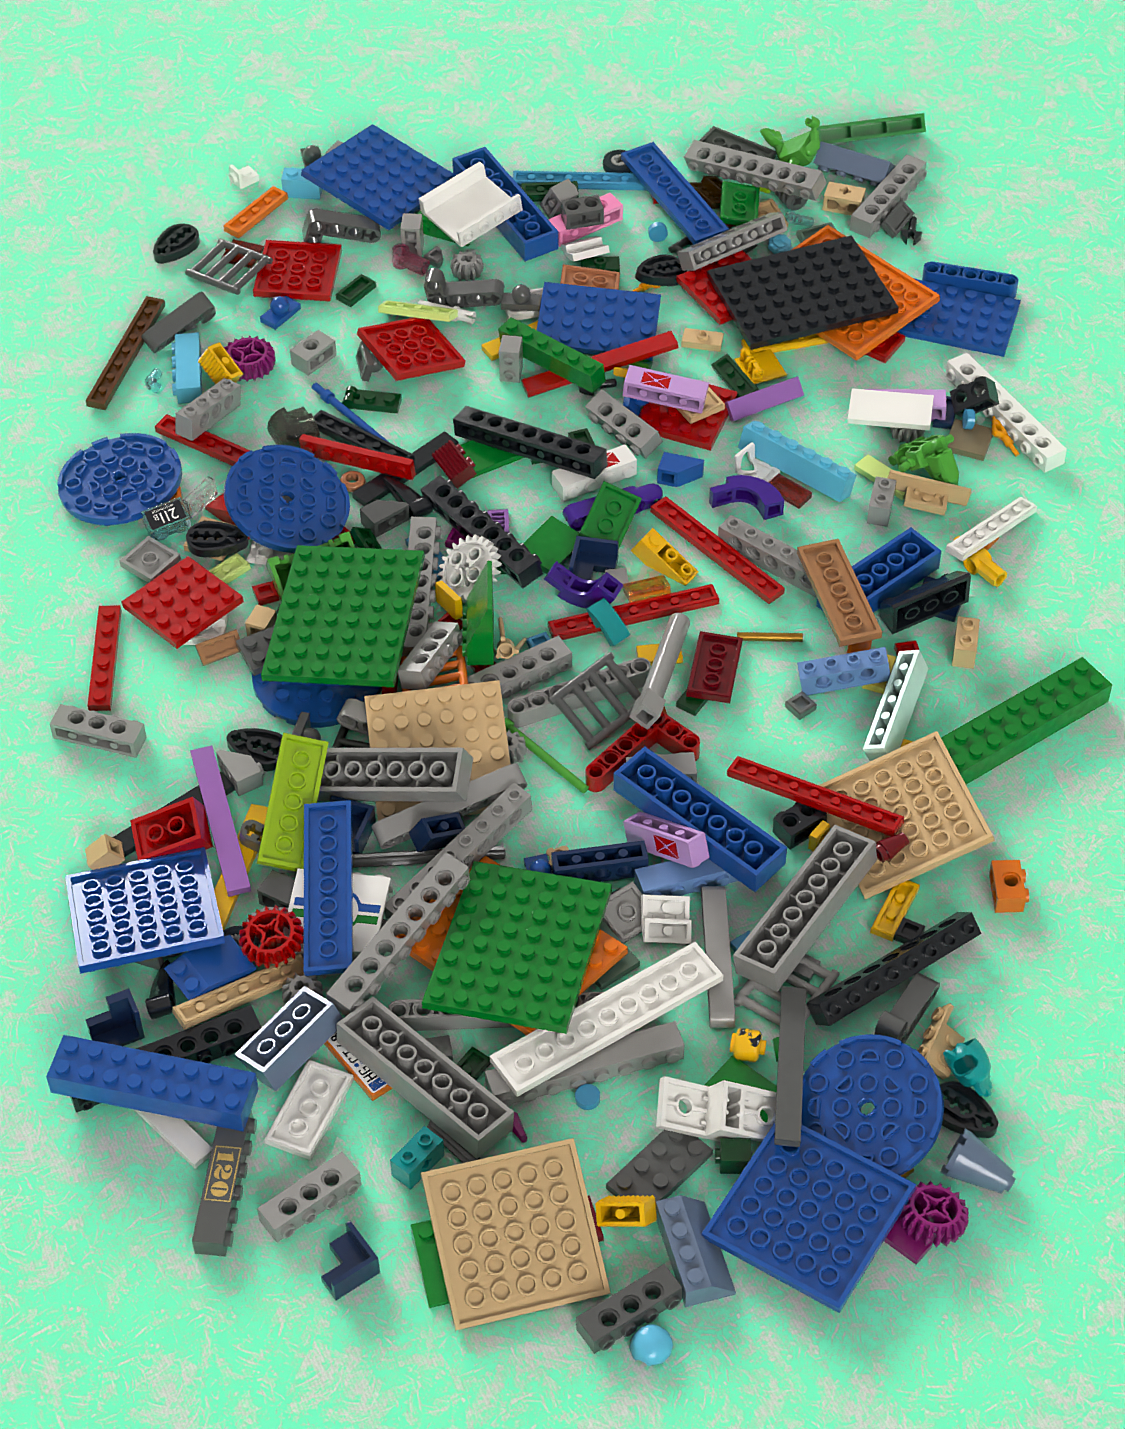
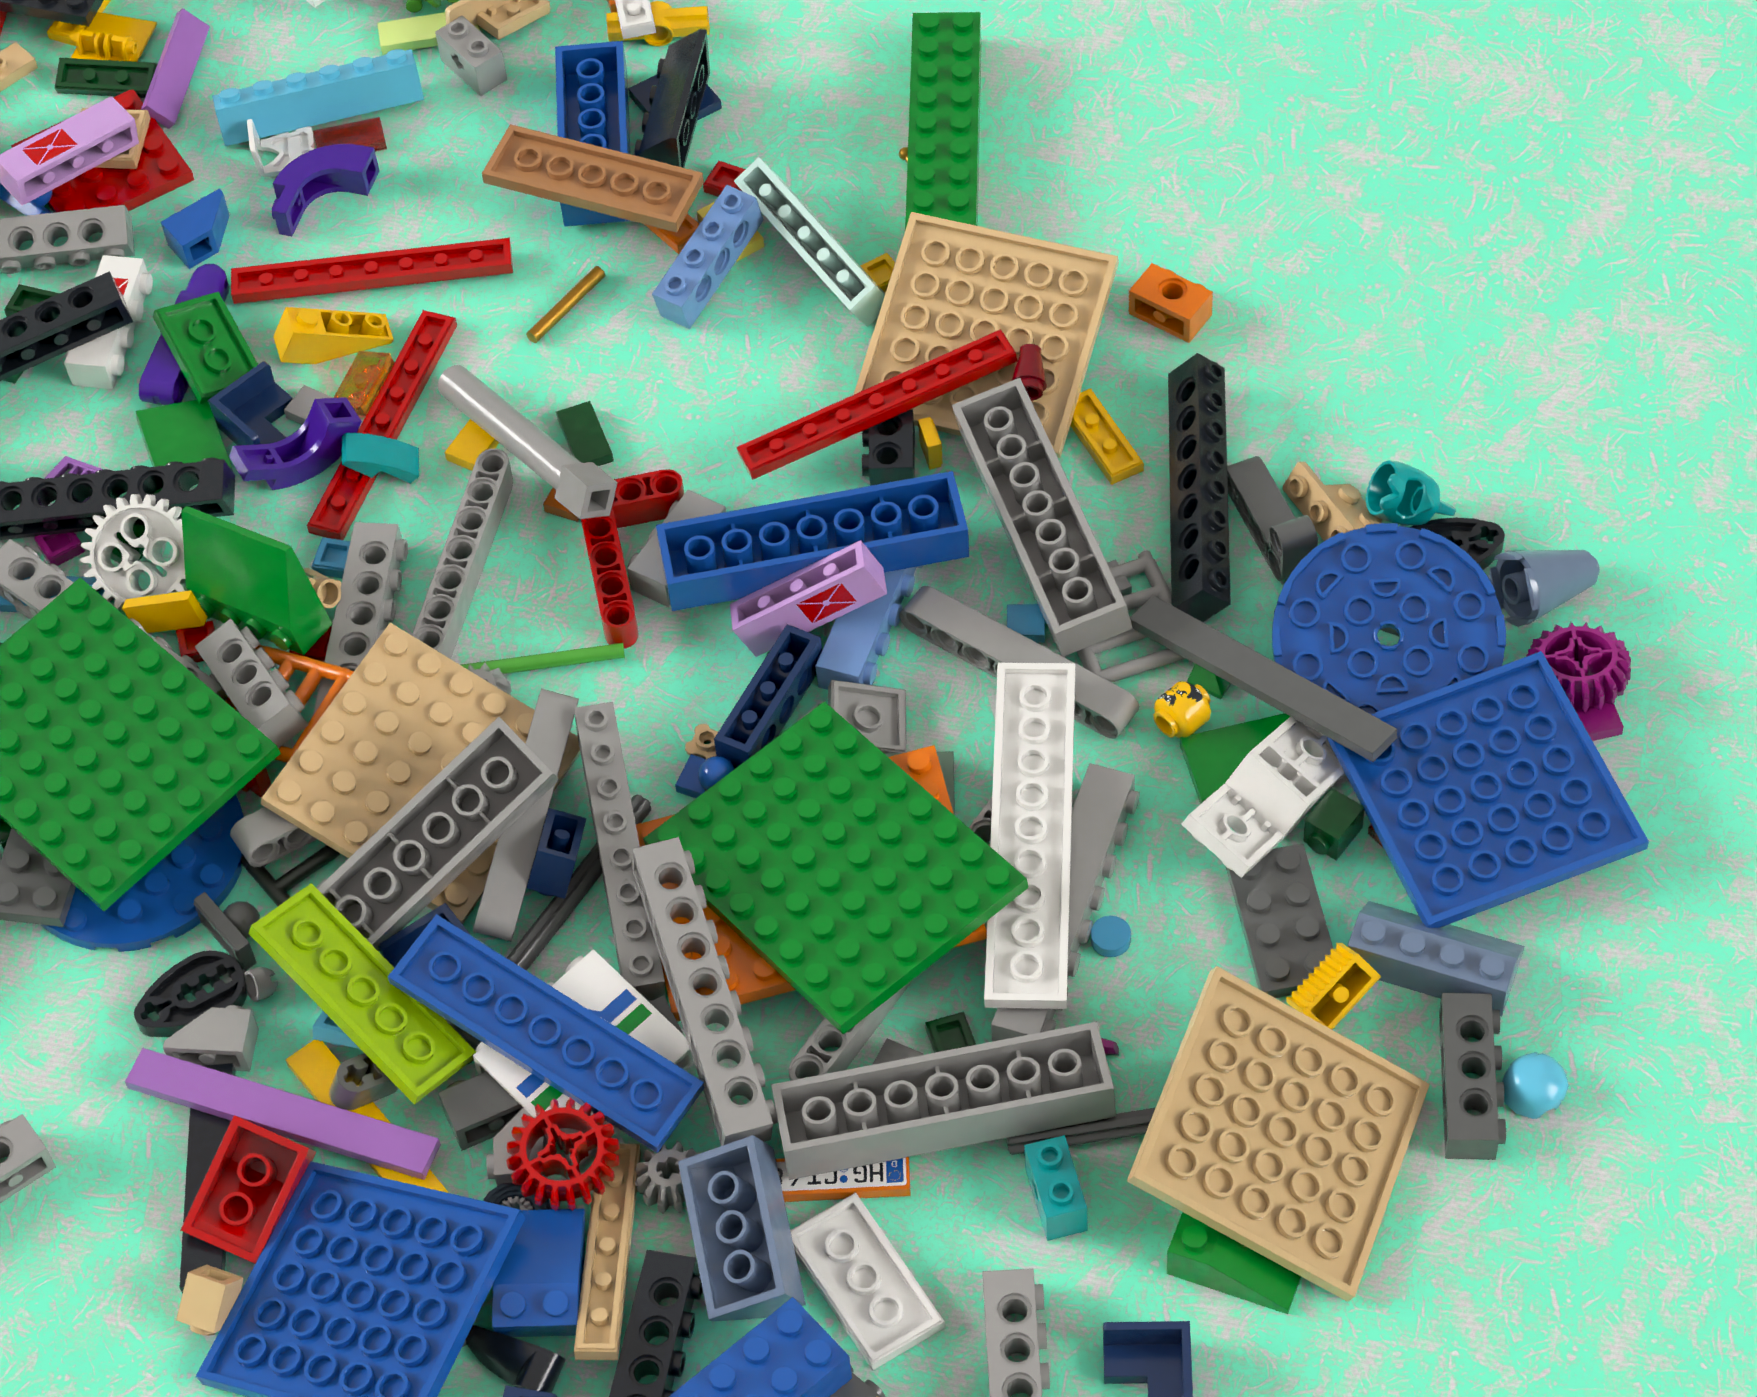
camera: 50 degrees left, 5 degrees up
(573, 685) = (462, 553): dark grey bar -> none
(666, 919) = (915, 682): white slope -> none
(714, 667) = (562, 389): dark red tile -> none
(765, 552) = (445, 218): light grey brick -> none
(800, 705) = (705, 339): flat silver tile -> none
(908, 930) = (1149, 442): black tile -> none
(965, 642) = (773, 112): tan brick -> none

